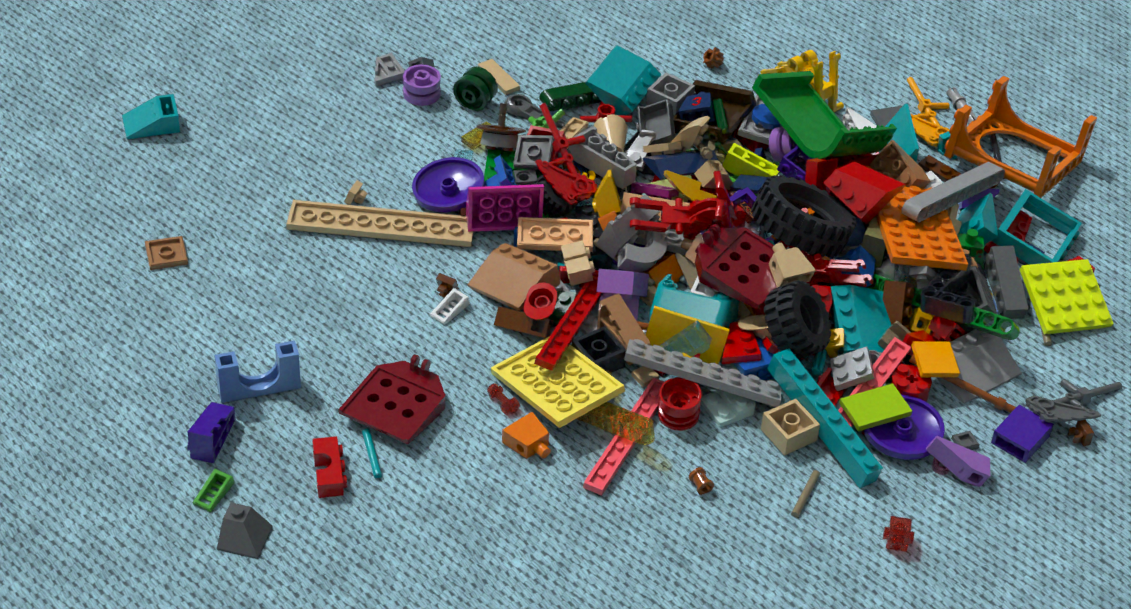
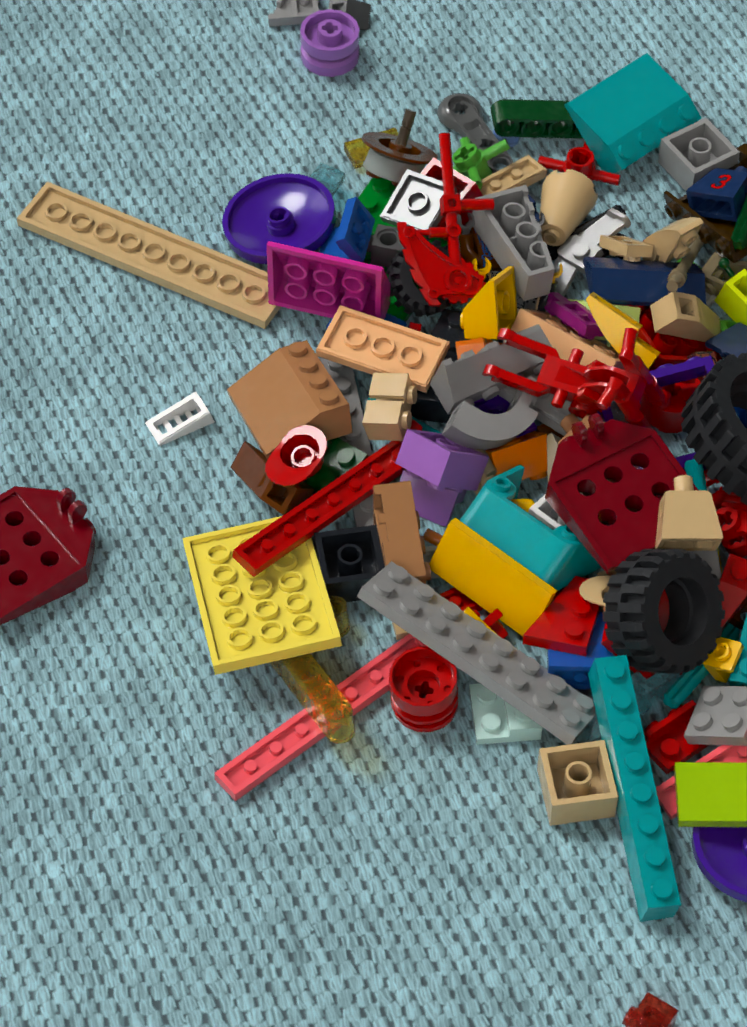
camera: 25 degrees right, 10 degrees up
(356, 194) = (141, 195): tan tile -> none
(445, 284) = (190, 383): reddish brown tile -> none
(475, 88) = (401, 70): dark green wheel -> none
(503, 79) = (457, 57): tan tile -> none
(508, 406) = (178, 608): clear red bar -> none
(527, 437) = (173, 670): orange torso -> none
(657, 118) = (648, 199): dark grey container -> none
(690, 340) = (484, 591): clear light blue slope -> none
(701, 480) = (394, 828): dark orange bush -> none
(805, 493) = (547, 902): dark tan bar -> none

